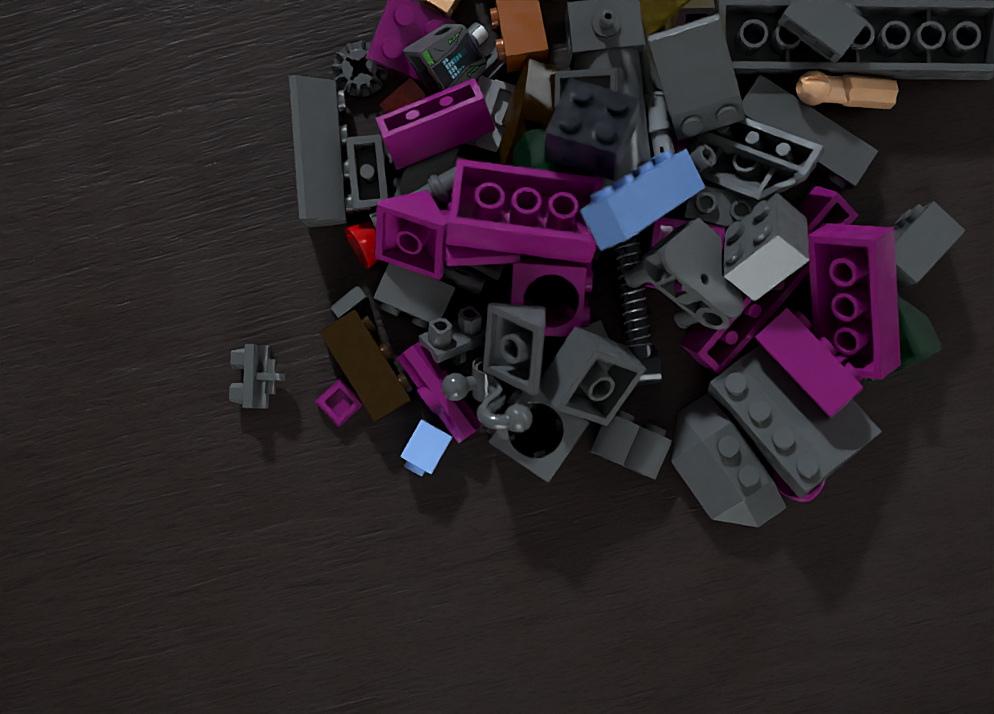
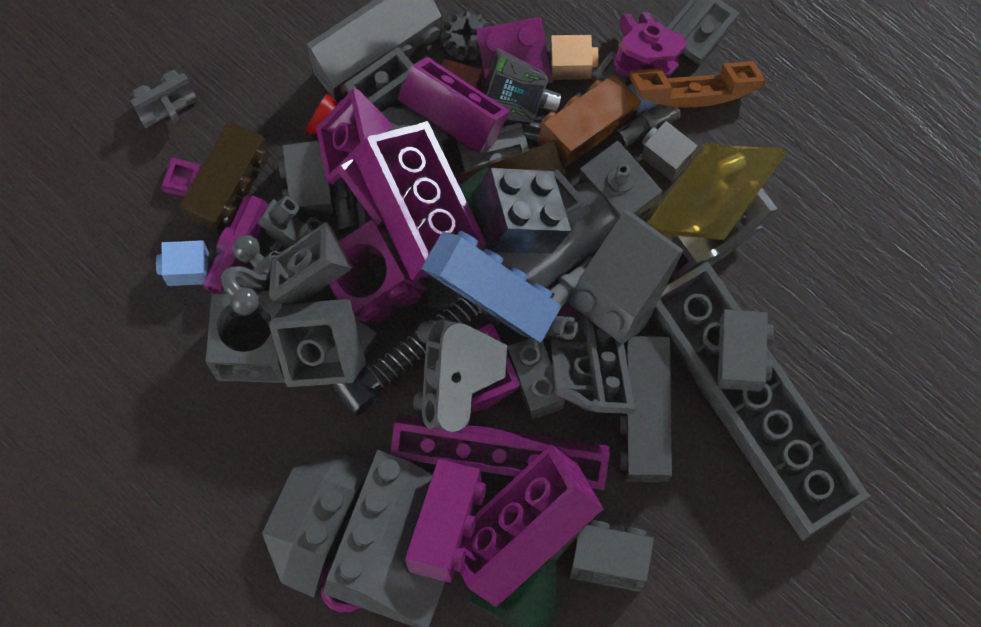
camera: 60 degrees right, 15 degrees down
(349, 302) = (274, 135): dark grey tile -> none
(632, 445) = (287, 426): dark grey brick -> none
(765, 246) = (519, 416): dark grey brick -> none
(847, 90) = (706, 419): light nougat piece -> none

